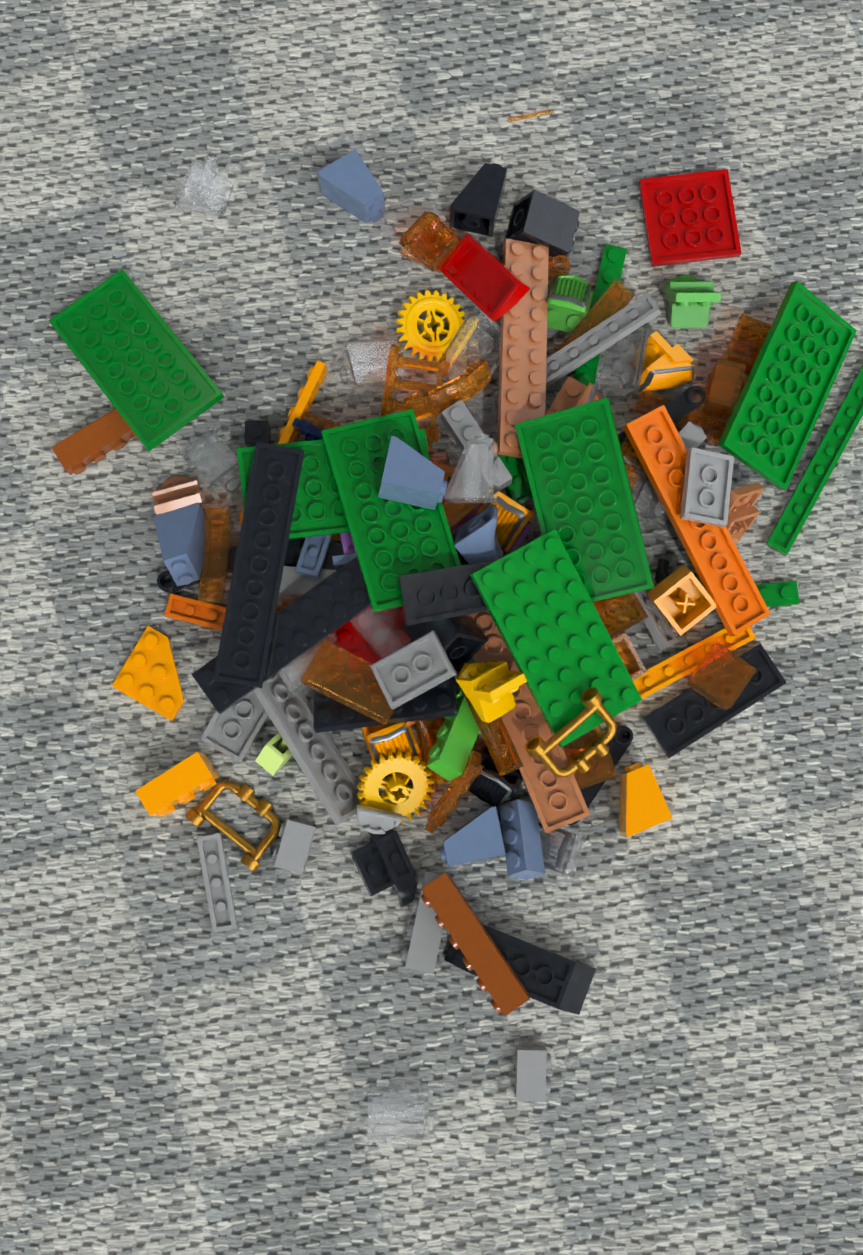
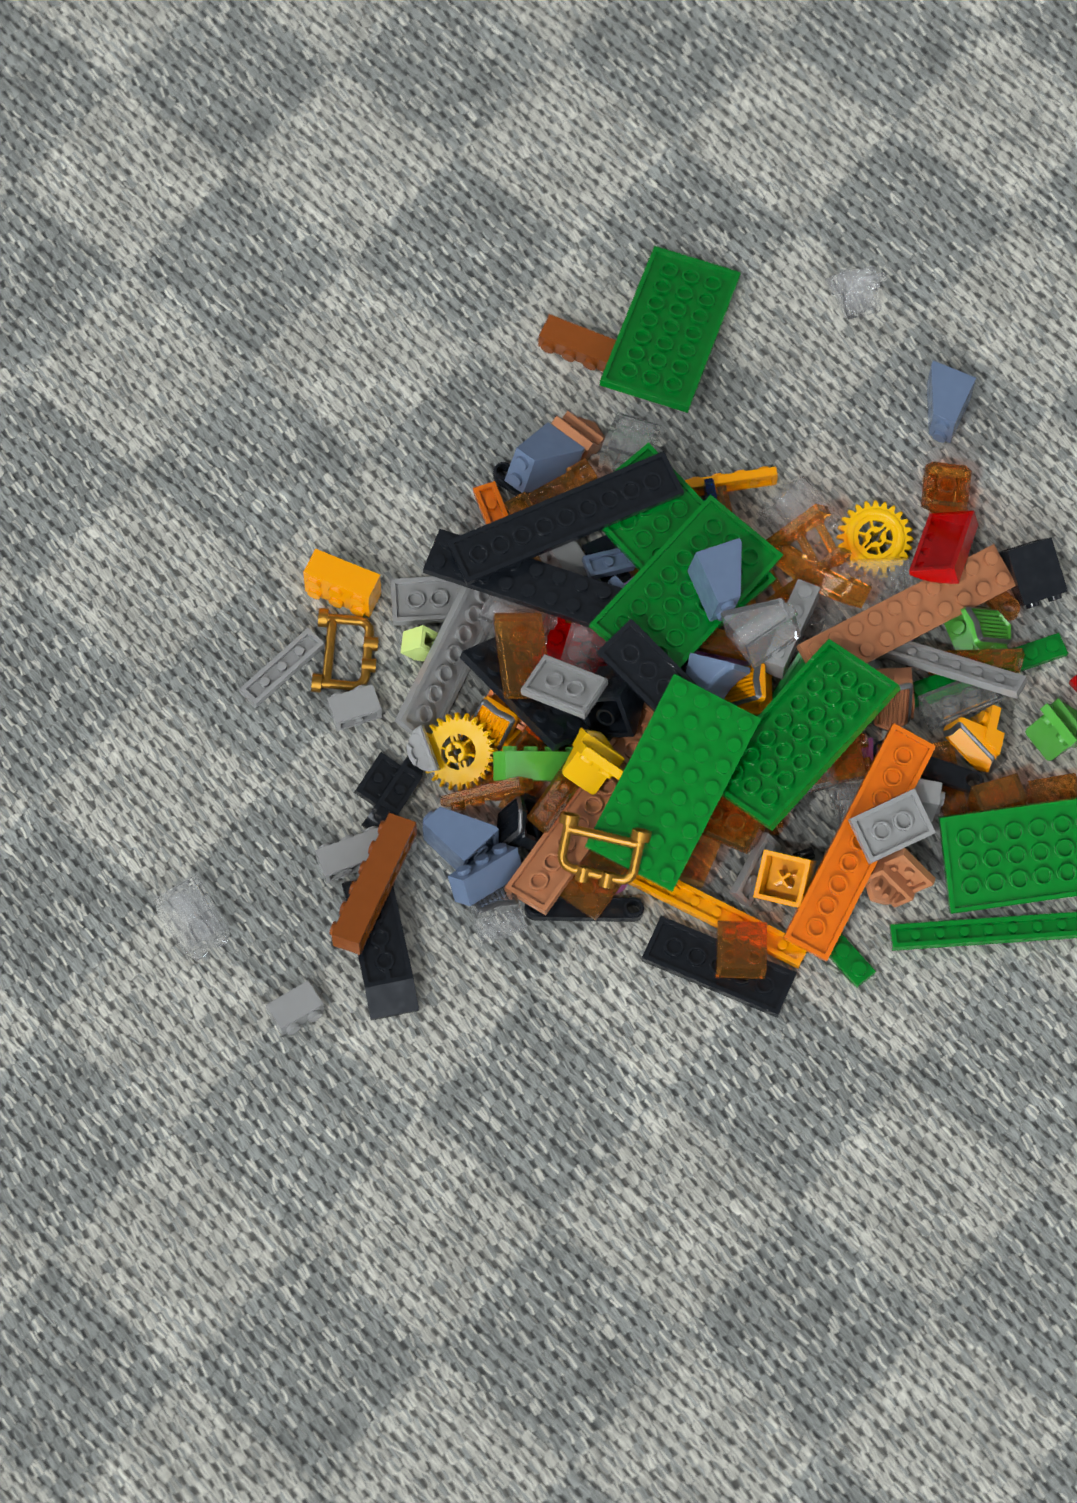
camera: 55 degrees right, 15 degrees down
(152, 675) = (417, 512): light orange plate -> none
(257, 432) = (681, 460): black brick -> none
(480, 201) = (1014, 506): black slope -> none
(640, 800) = (585, 950): light orange slope -> none

